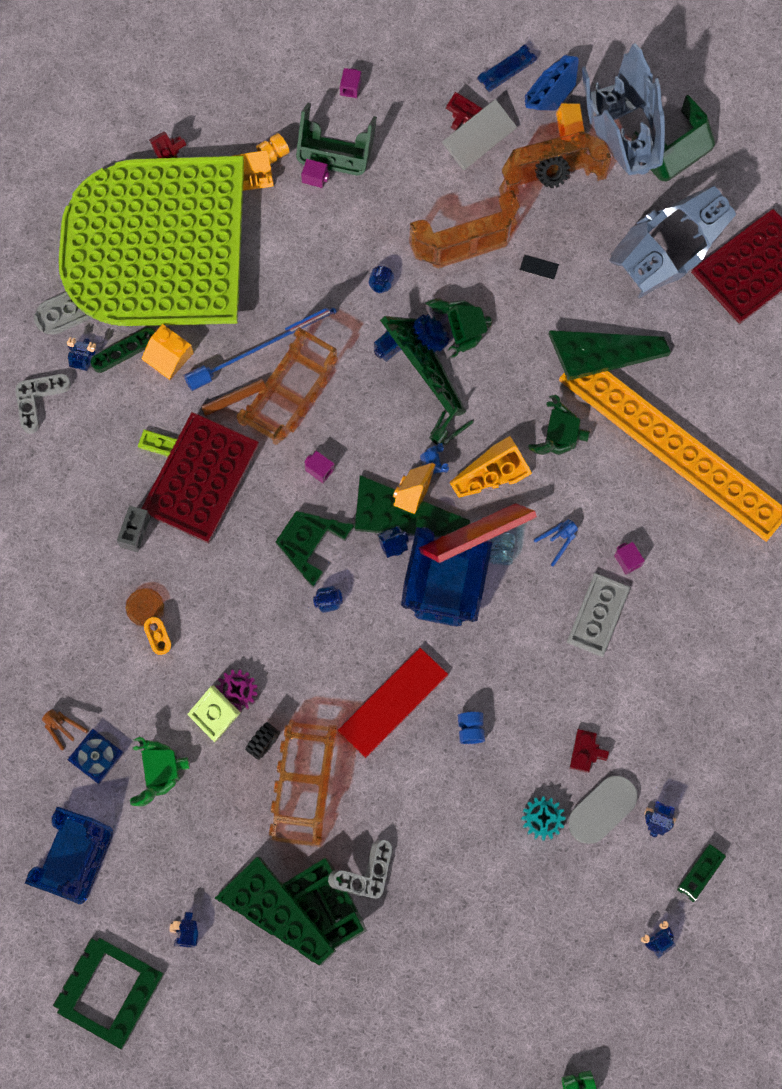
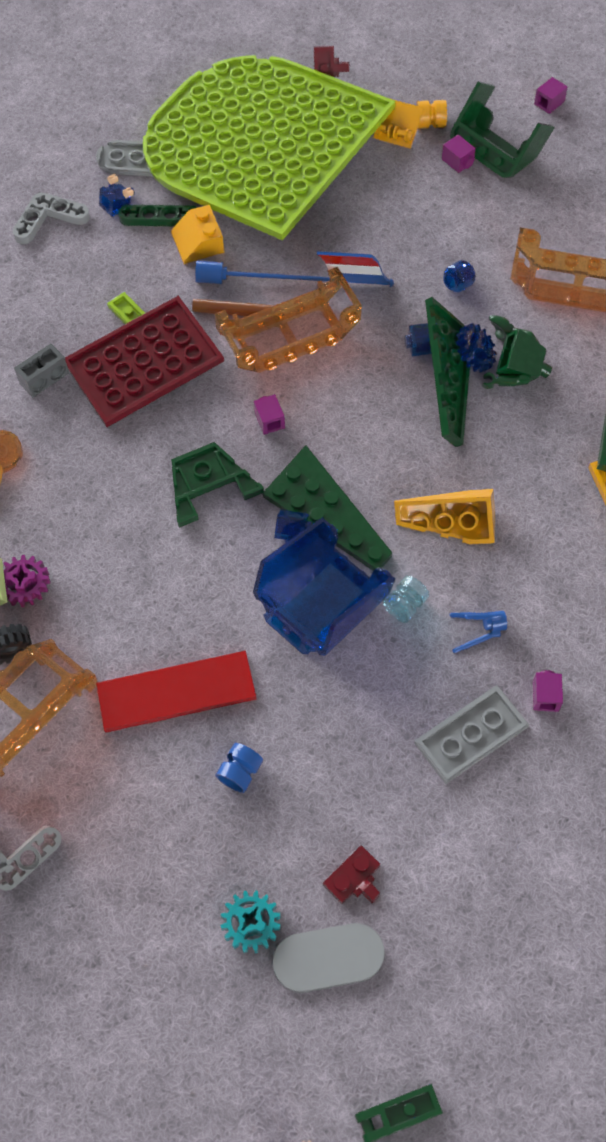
camera: 35 degrees right, 10 degrees down
(328, 599) = (183, 544): clear blue head -> none
(413, 488) = (351, 484): light orange slope -> none
(432, 456) = (391, 471): blue piece -> none
(439, 434) = (418, 451): dark green plant -> none
(477, 532) = (388, 562): red tile -> none
(562, 430) = (556, 517): dark green torso -> none
(659, 819) = (388, 1012): clear blue piece -> none

